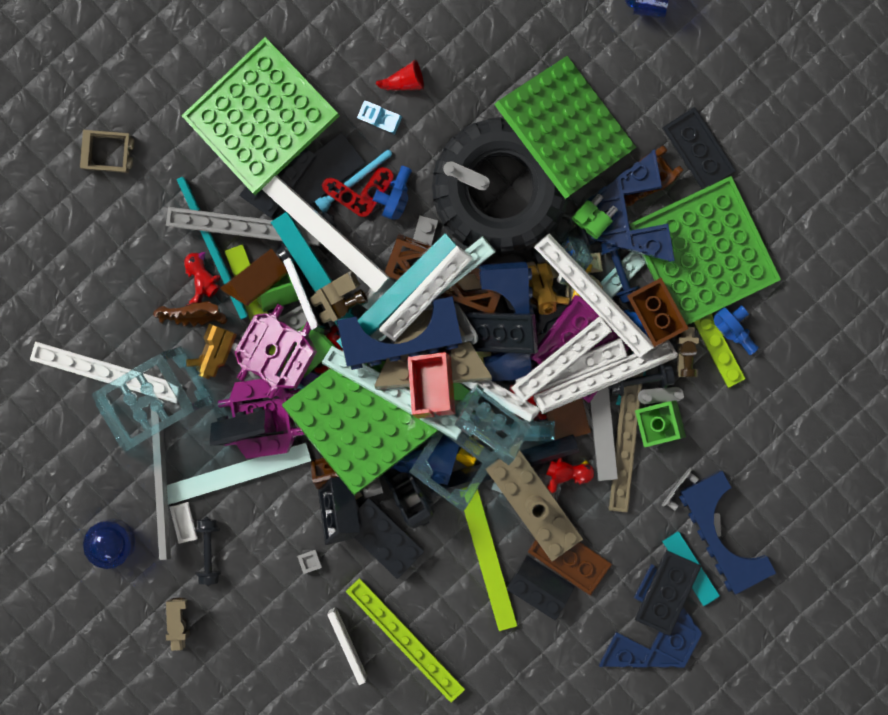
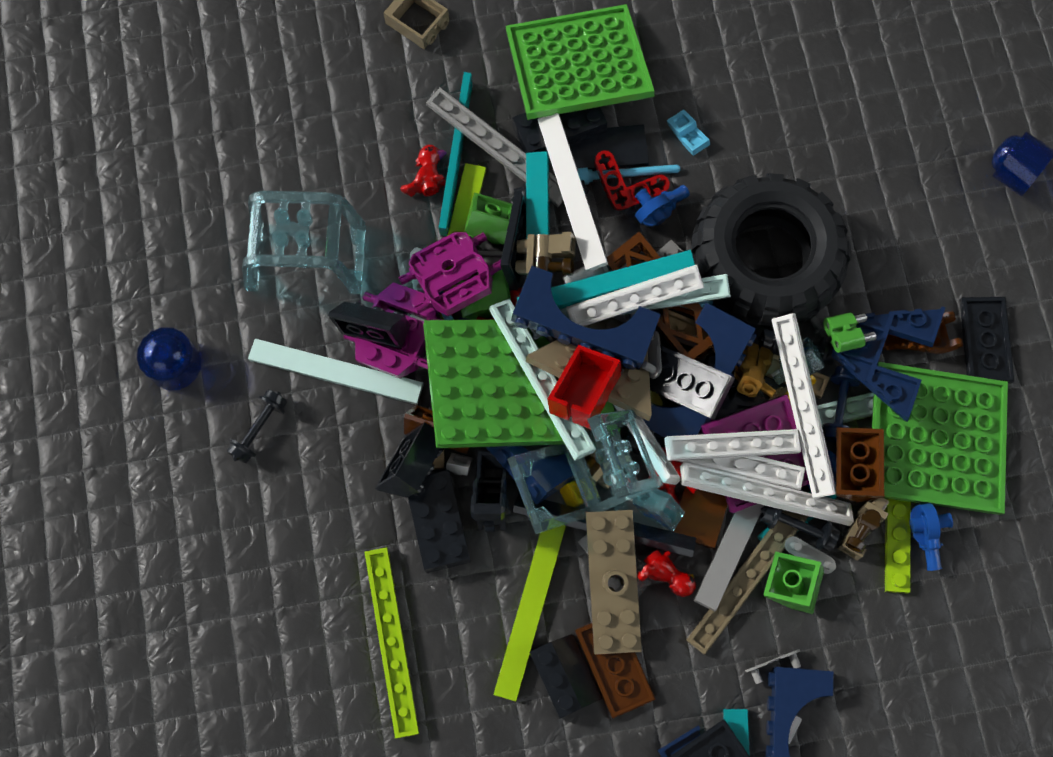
camera: 35 degrees right, 15 degrees down
(95, 369) = (259, 180): white tile -> none
(161, 491) = (255, 336): light grey tile -> none
(176, 623) = (176, 475): dark tan hips -> none
(183, 522) = (254, 386): white tile -> none
(191, 313) = (398, 197): reddish brown animal -> none
(215, 353) = (379, 249): pearl gold piece -> none
(256, 278) = (478, 193): reddish brown slope -> none
(309, 561) = (349, 500): light grey plate -> none
(347, 645) = (328, 606): white tile -> none
(405, 79) = (735, 111): red hat -> none
(466, 175) = (745, 210): light grey piece -> none
(565, 126) = (869, 230): bright green plate -> none

